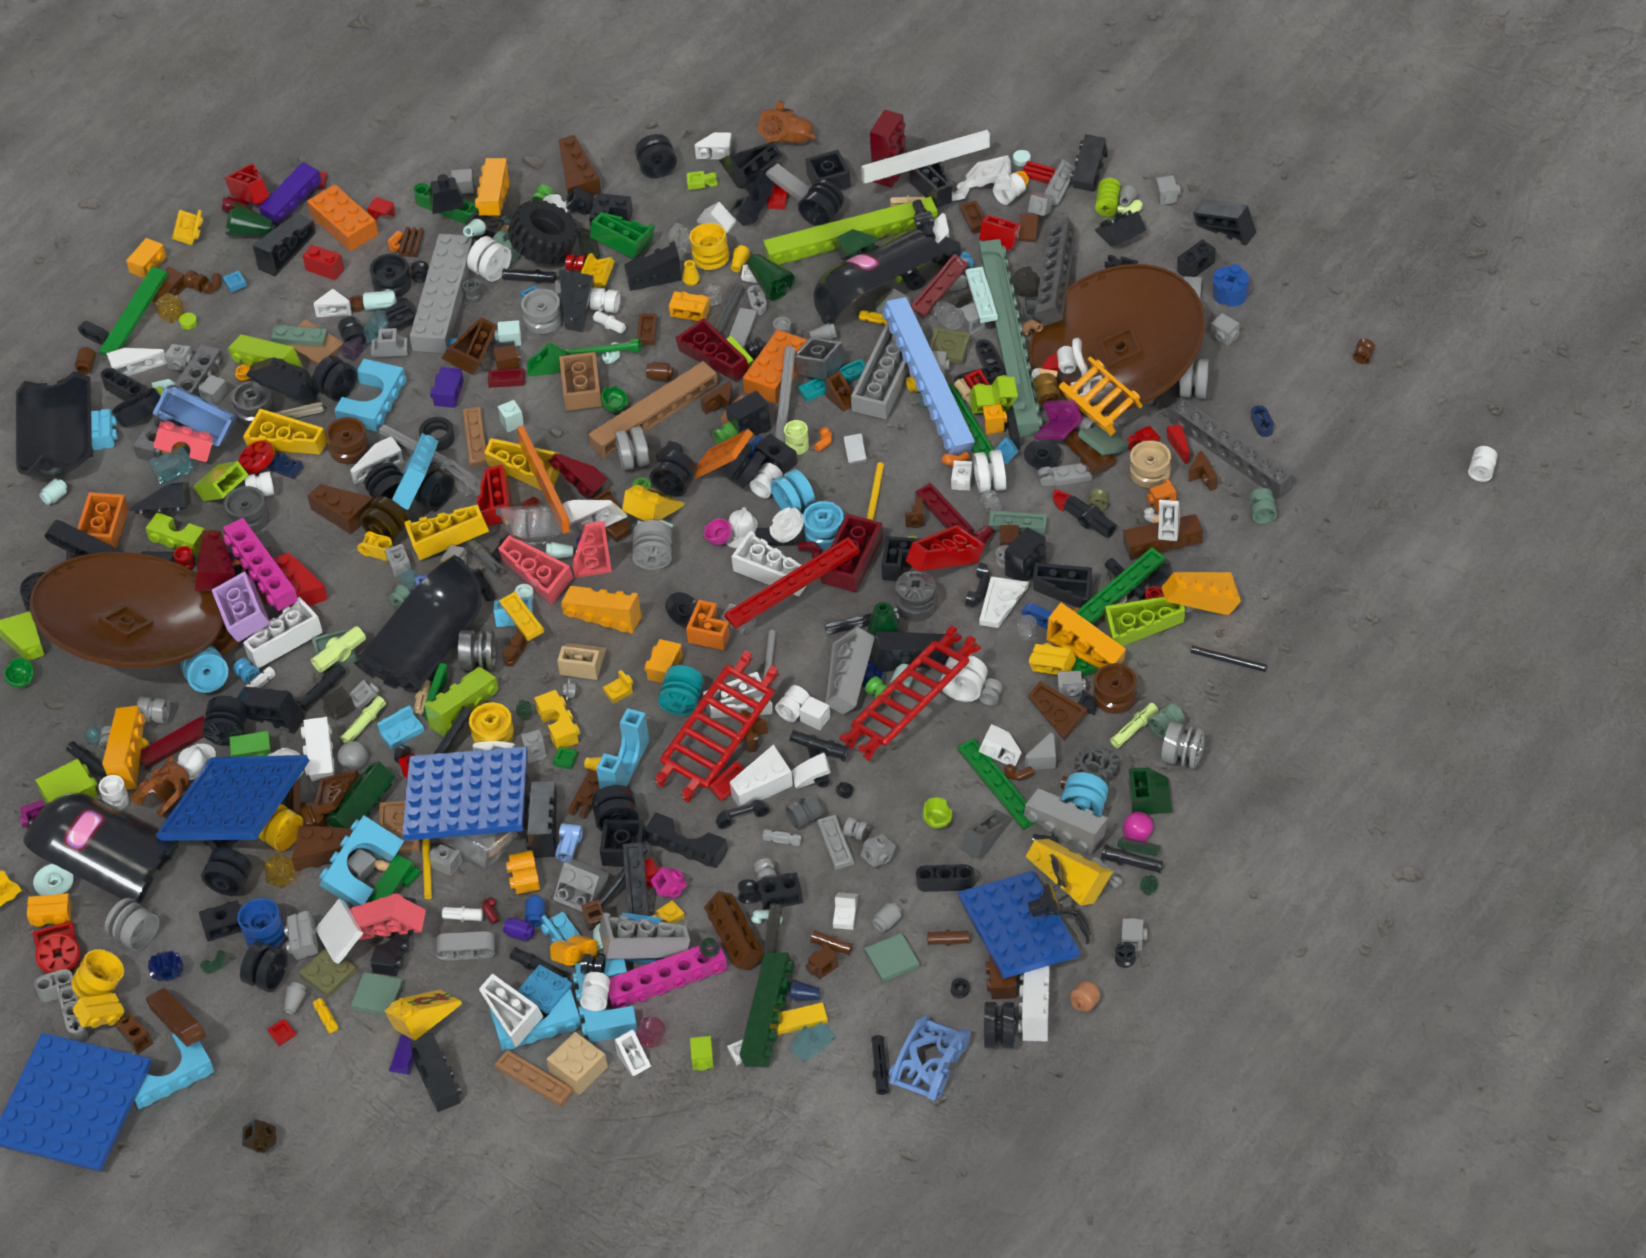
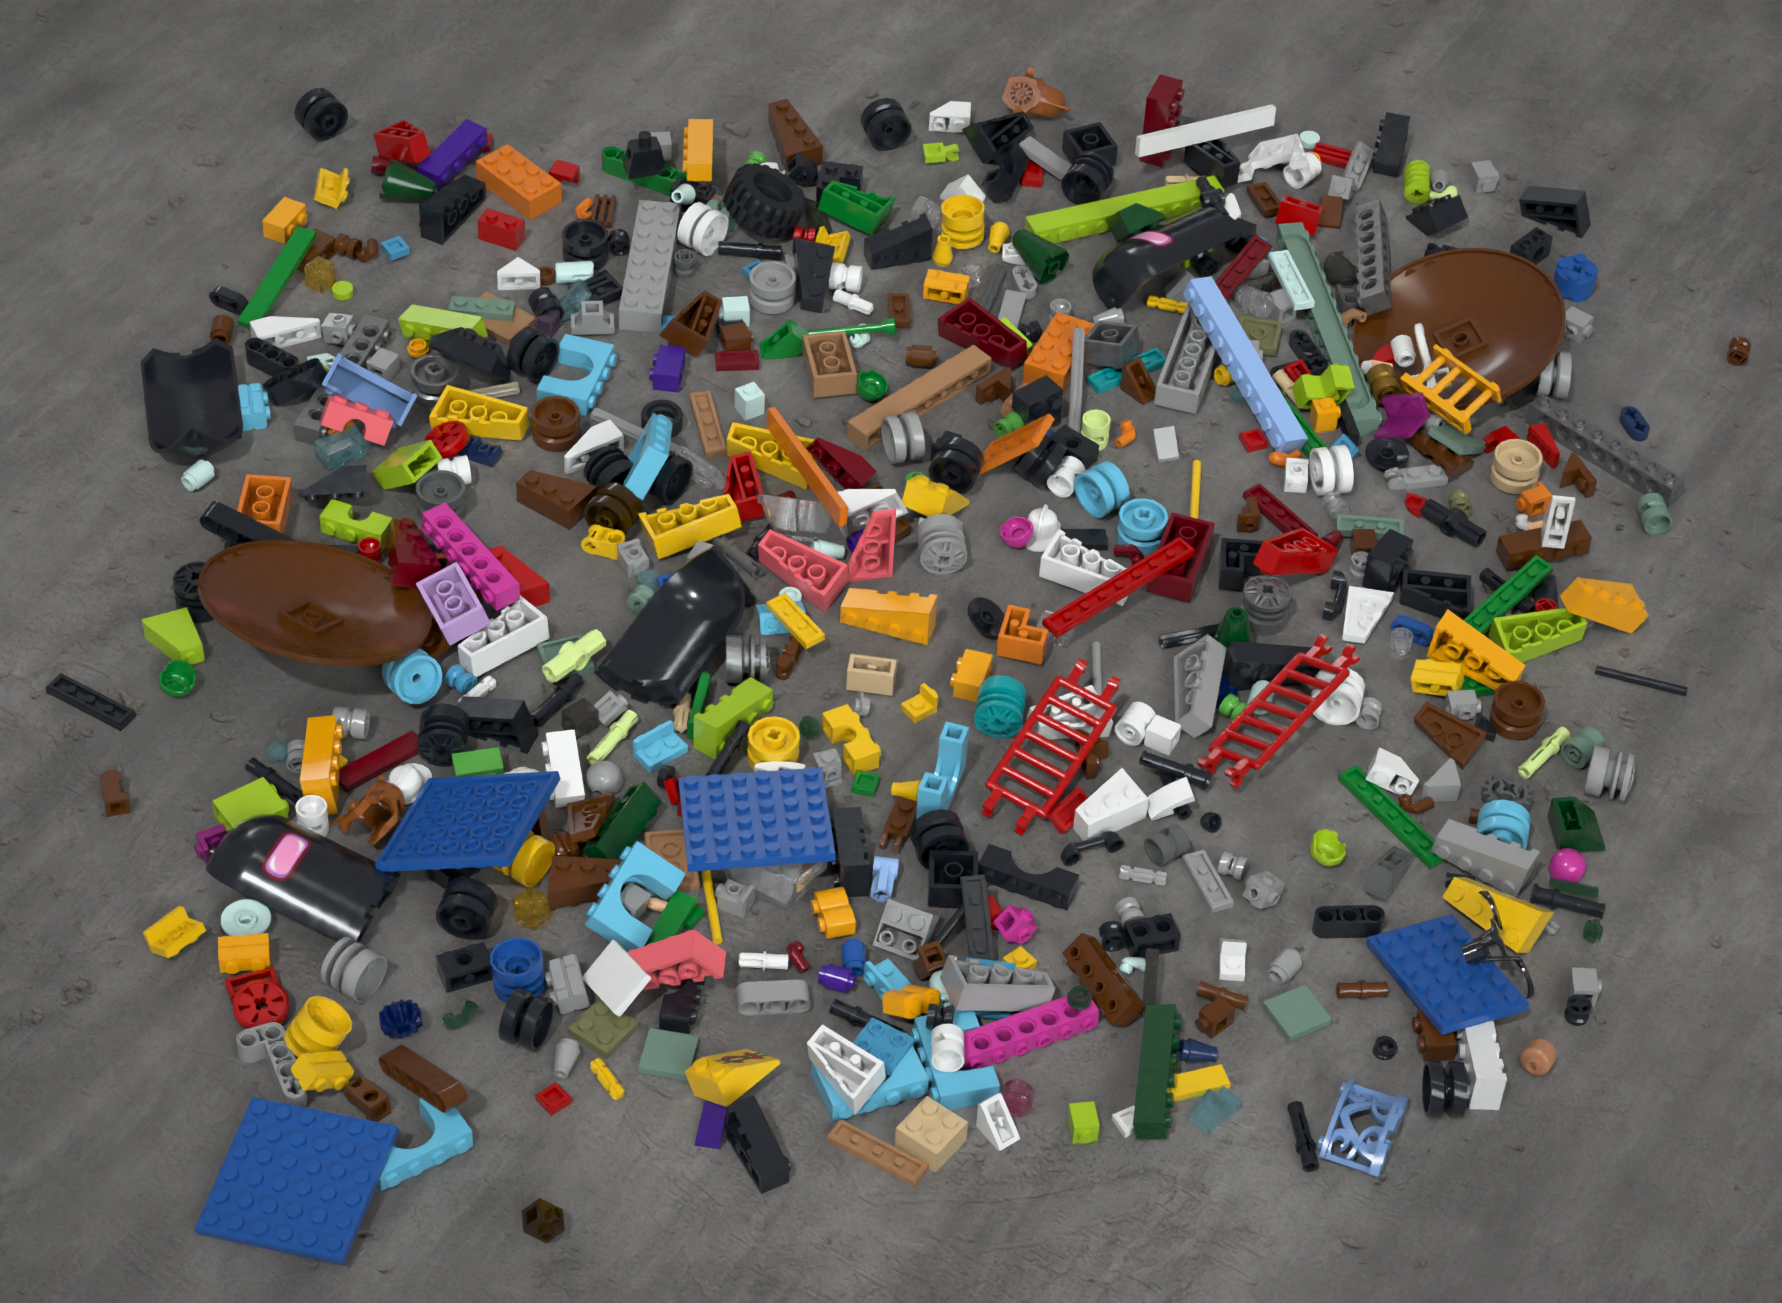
camera: 10 degrees left, 5 degrees down
(184, 160) = (321, 114): none -> black wheel
(786, 524) = (1100, 524): white tile -> none
(931, 443) = (1253, 440): none -> red tile

